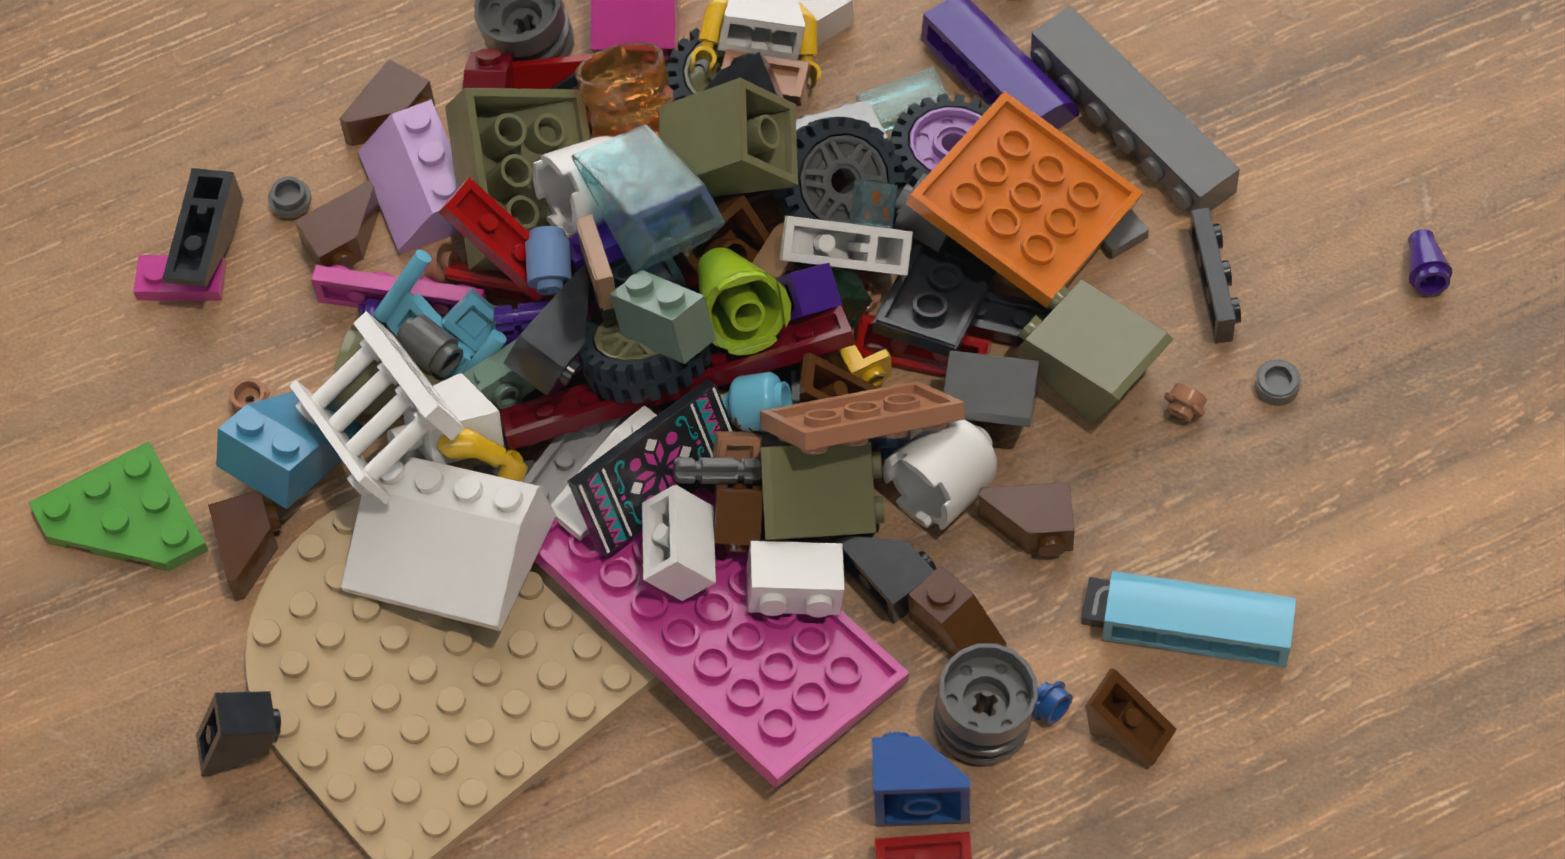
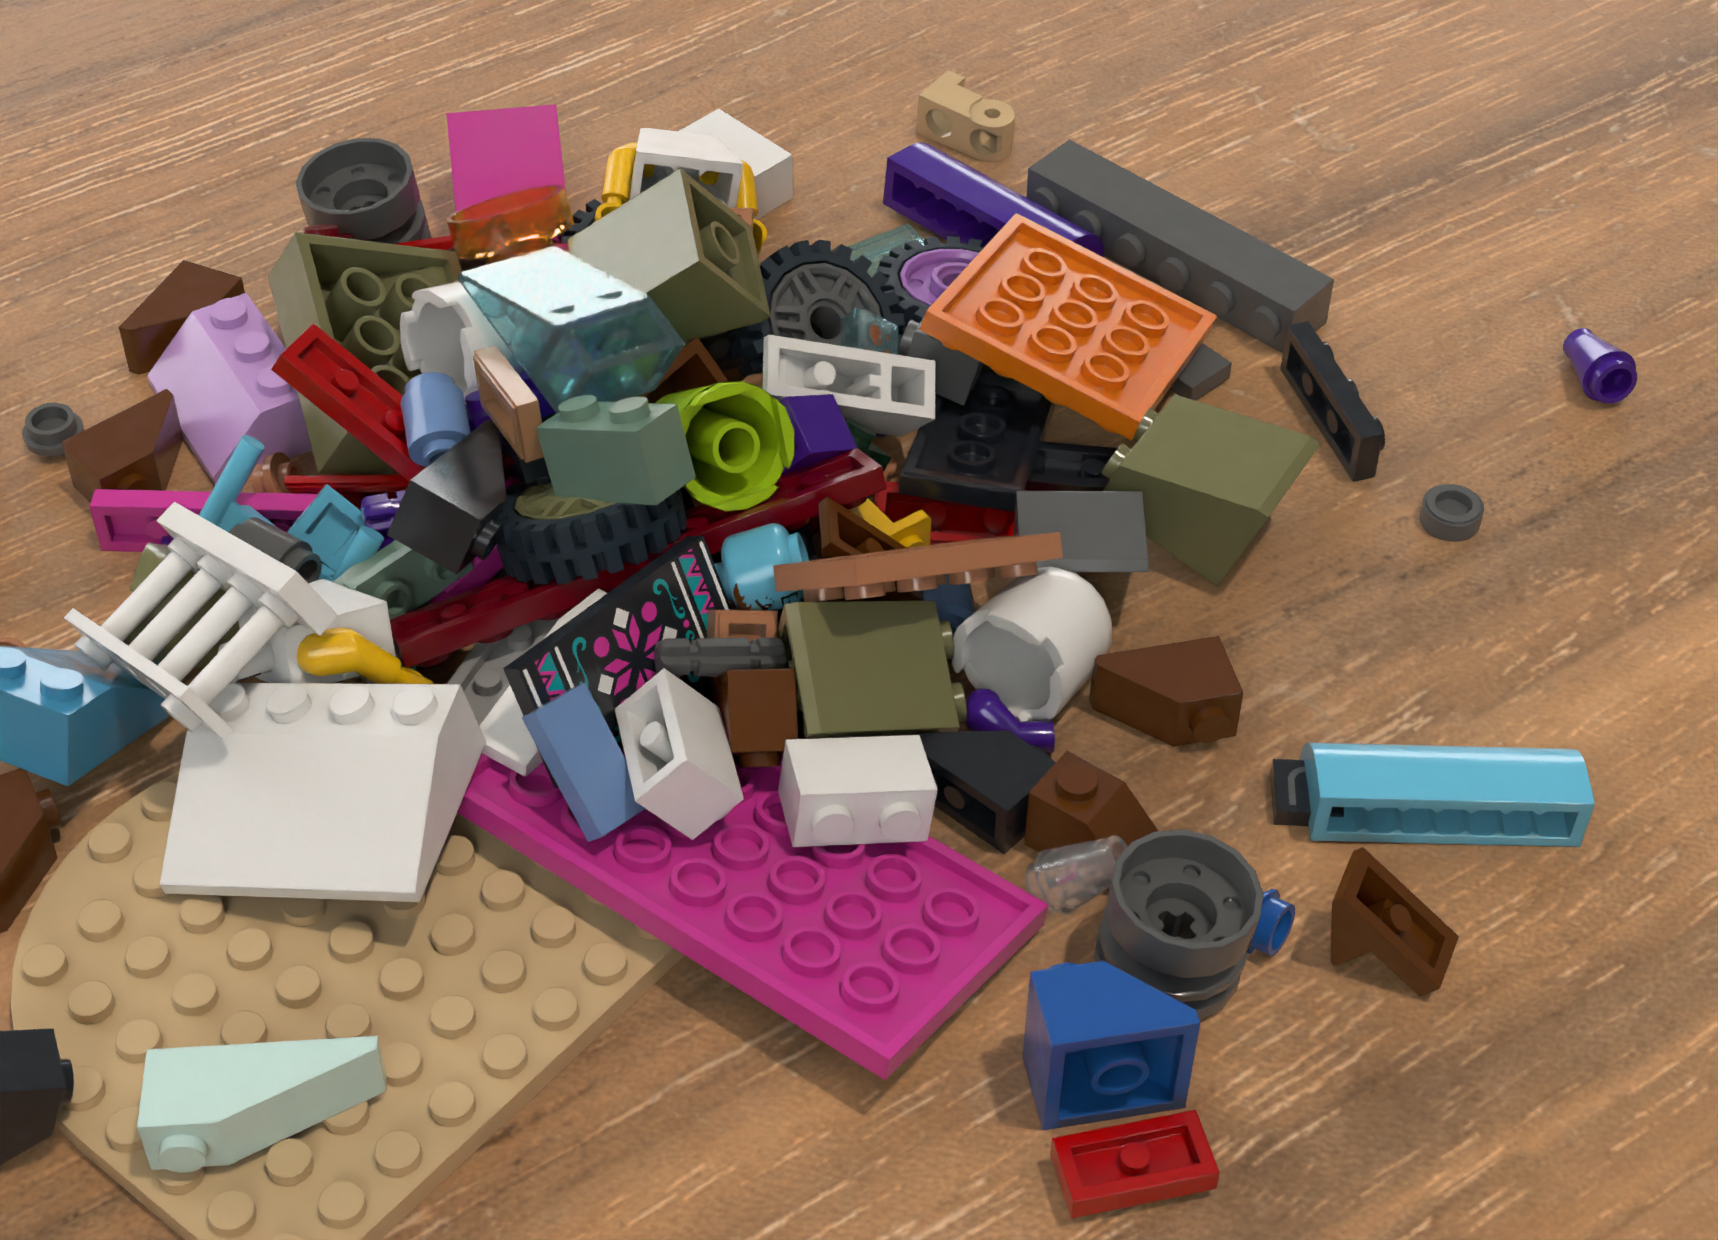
camera: 15 degrees left, 15 degrees down
(376, 751) = (239, 1098): none -> light aqua slope
(614, 544) = (584, 761): none -> medium blue tile
(906, 527) = (989, 713): none -> dark purple arm
(928, 653) = (1073, 873): none -> clear cone
(1185, 402) = (1340, 541): nougat plate -> none

